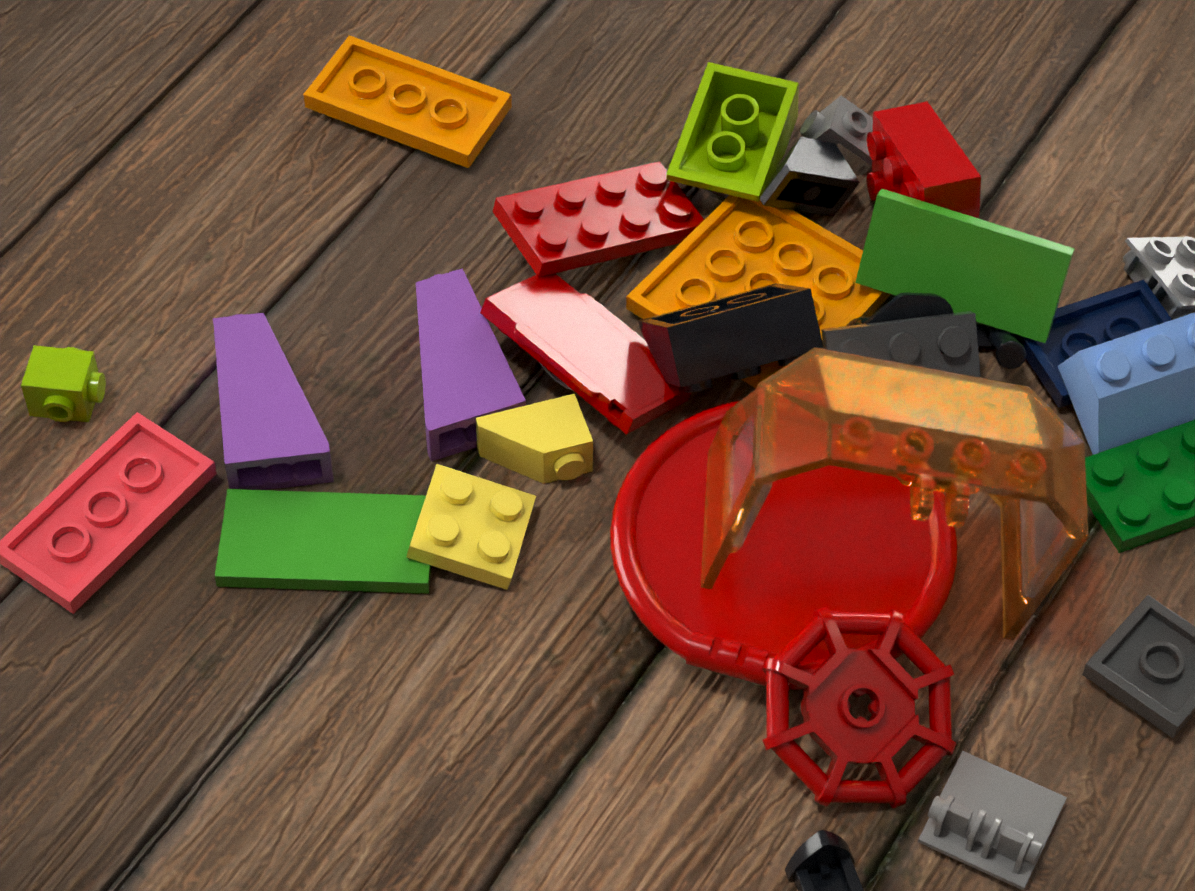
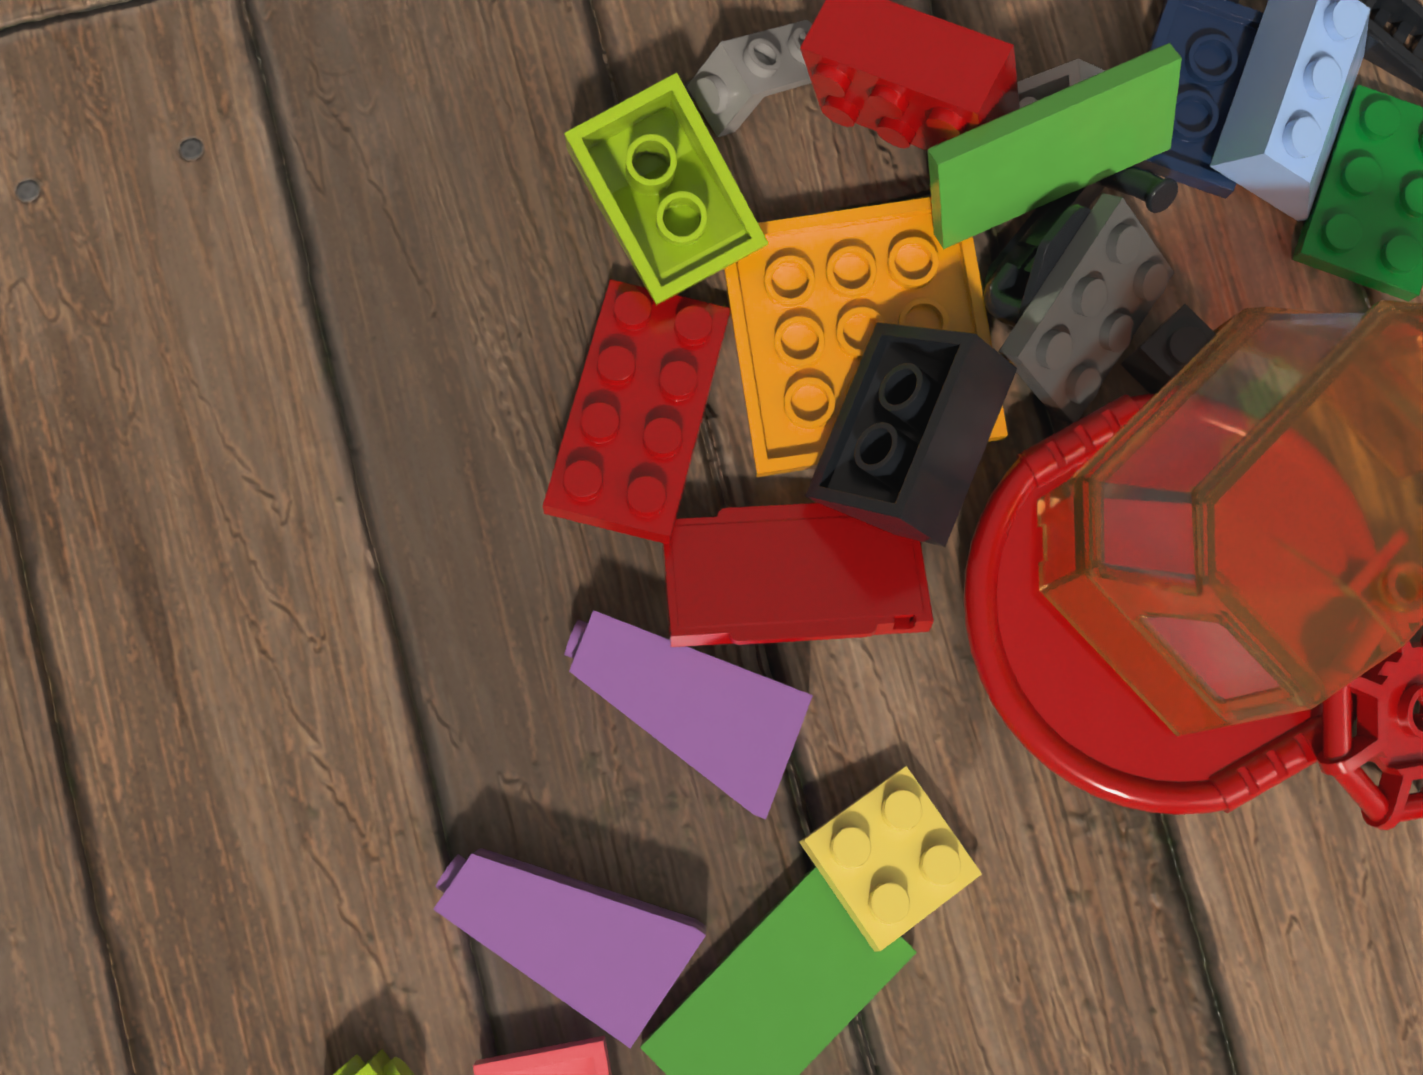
camera: 45 degrees left, 30 degrees up
(408, 101) = (296, 451): light orange plate -> none
(538, 440) = (855, 706): light yellow slope -> none
(811, 179) = (777, 166): black slope -> none

